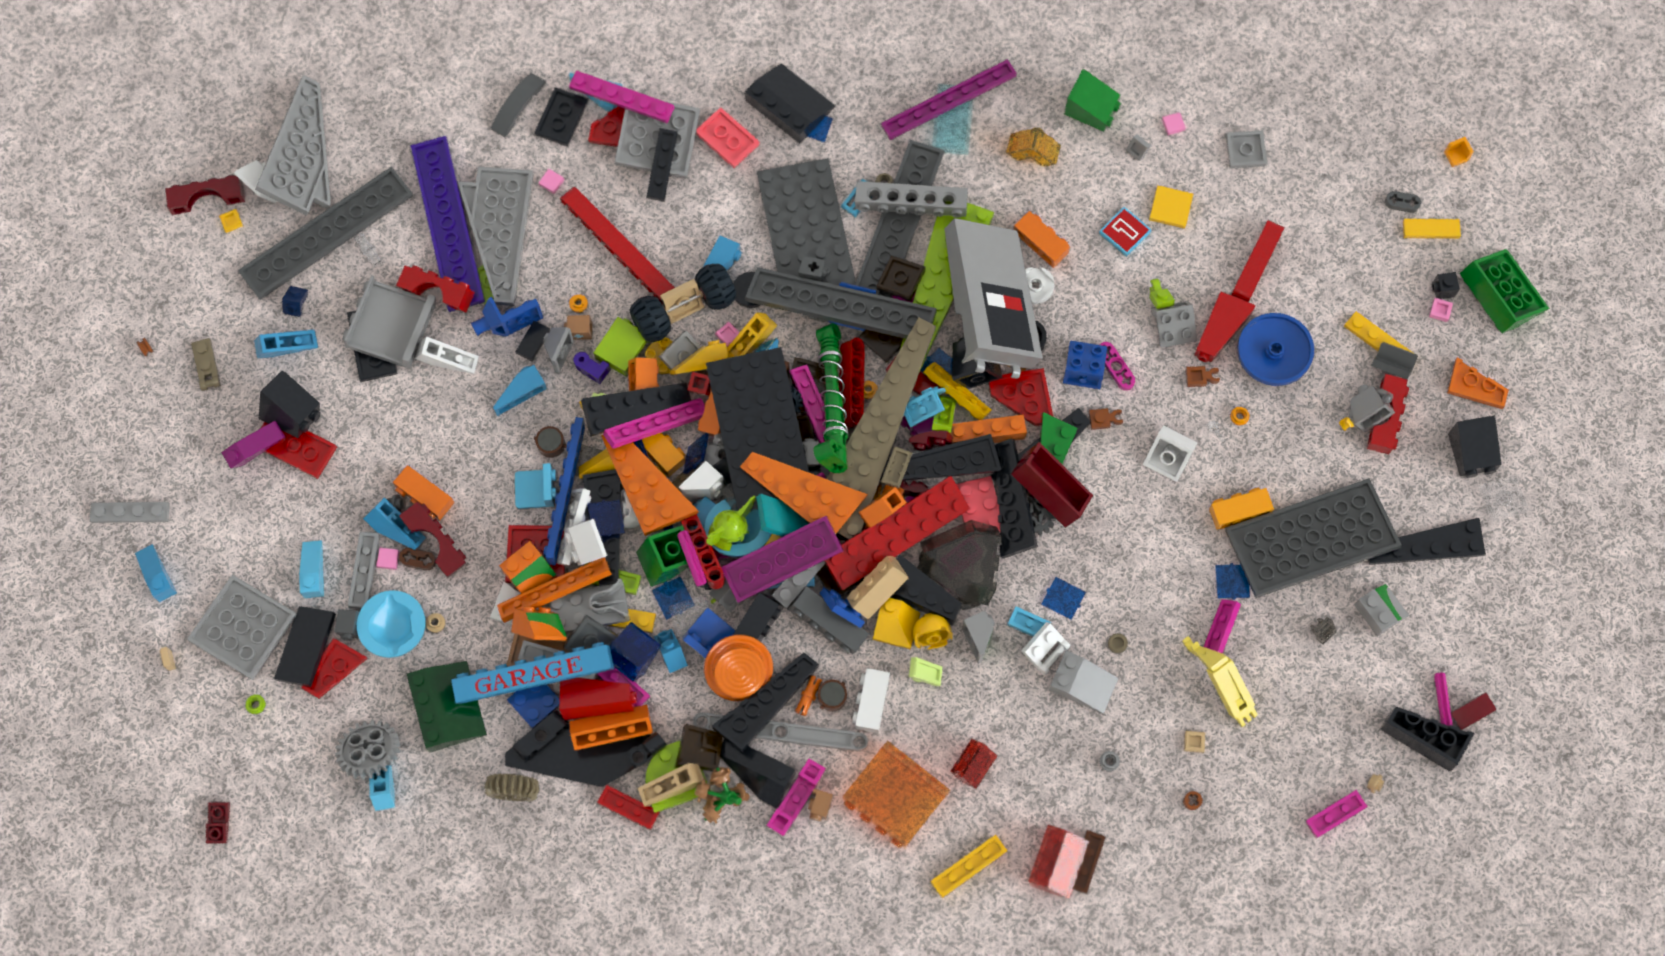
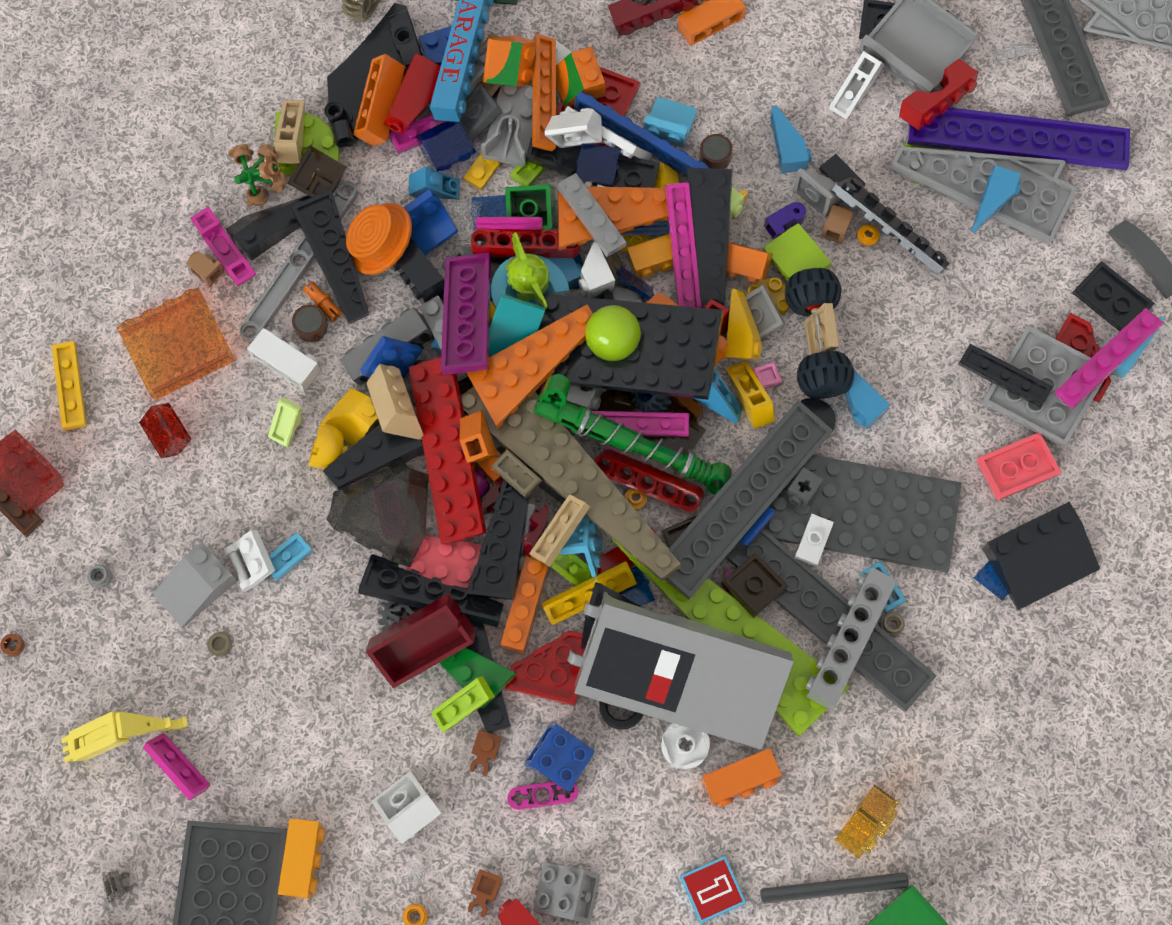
camera: 115 degrees right, 0 degrees up
(510, 322) = (877, 142): blue plate -> none
(511, 216) = (998, 192): none -> dark azure slope
(551, 181) = (1032, 259): bright pink tile -> none
(555, 309) = (854, 194): none -> black wing
(616, 243) = (923, 298): red beam -> none
(628, 807) = (300, 89): red plate -> none
(661, 494) = (591, 215): none -> light grey plate
(756, 437) = (612, 333): none -> lime piece
(847, 251) = (814, 540): none -> white plate
(930, 412) = (559, 530): none -> tan plate
(948, 99) = (974, 746): magenta plate -> none
(953, 127) = (948, 743): clear light blue tile -> none
(978, 633) = (297, 491): light grey slope -> none
(1063, 598) = (299, 609): clear blue piece -> none
(1082, 440) = (462, 704): none -> lime plate
(1086, 156) = (834, 888): none -> dark grey axle
(1160, 297) = (604, 889): lime plate -> none
(1194, 741) = (72, 677): tan tile -> none
(1231, 582) = (225, 806): clear blue piece -> none

